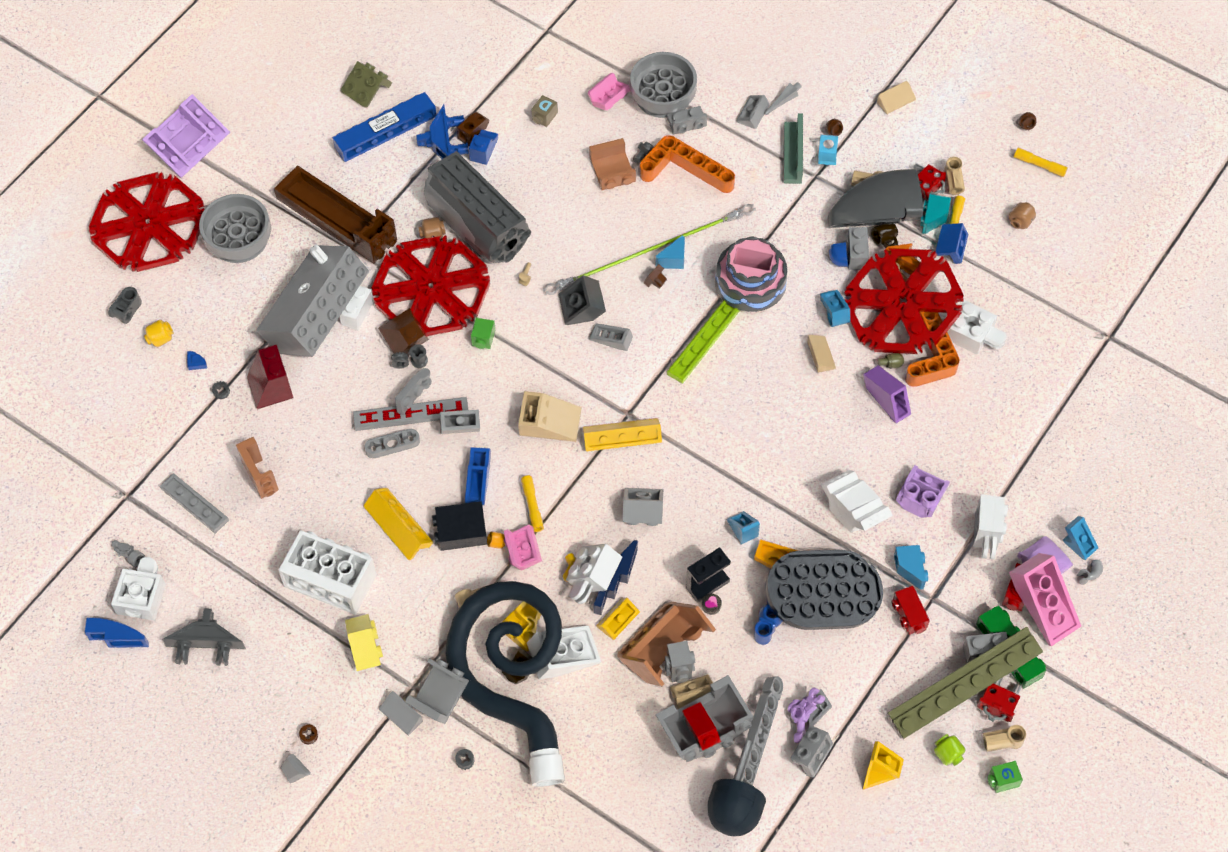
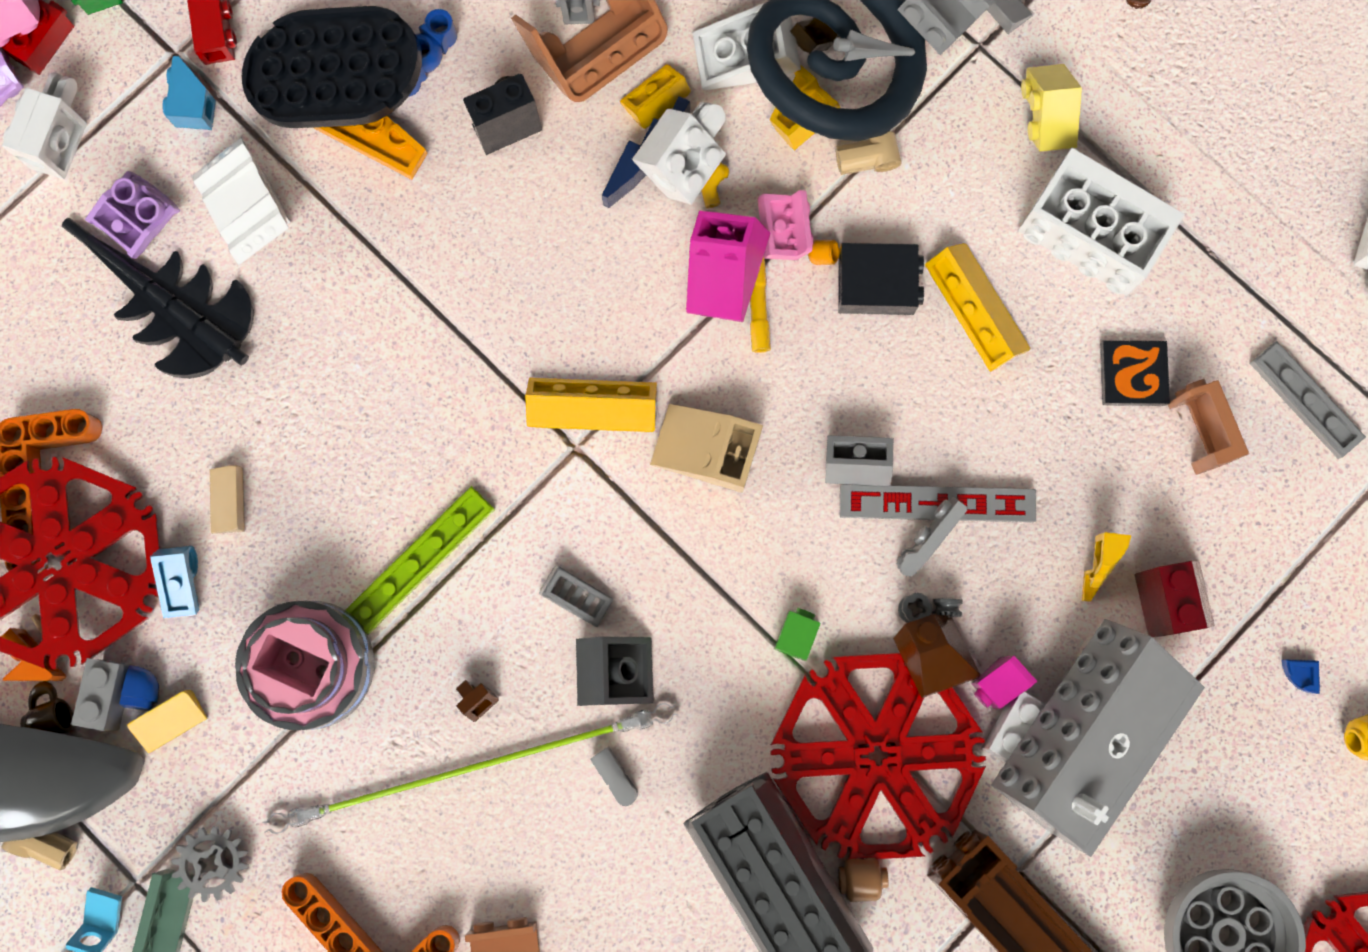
camera: 170 degrees left, 20 degrees up
(203, 634) = (1292, 163): dark grey connector -> none
(219, 385) = (1269, 603): dark grey bush -> none
(299, 501) = (1134, 373): none -> black tile
(311, 392) = (1107, 553): none -> yellow slope
(365, 326) = (1002, 682): none -> dark pink slope
(393, 436) = (998, 457): light grey beam -> none
(478, 475) = (839, 365): blue slope -> none
(490, 640) = (862, 46): none -> light grey piece
(524, 277) = (708, 743): tan hand -> none
(555, 515) = (724, 264): none -> dark pink slope
(572, 255) = (615, 777): none -> light grey bar
(643, 506) = (580, 266): light grey slope -> none
(673, 255) = (431, 740): dark azure slope -> none
(744, 526) = (429, 204): dark azure slope -> none
(775, 182) = (196, 856): none -> light grey gear
(820, 245) = (167, 720): none -> yellow slope
(858, 436) = (205, 331): none -> black animal
(888, 392) = (136, 398): medium lavender slope -> none
(892, 360) = (112, 462): olive cylinder -> none

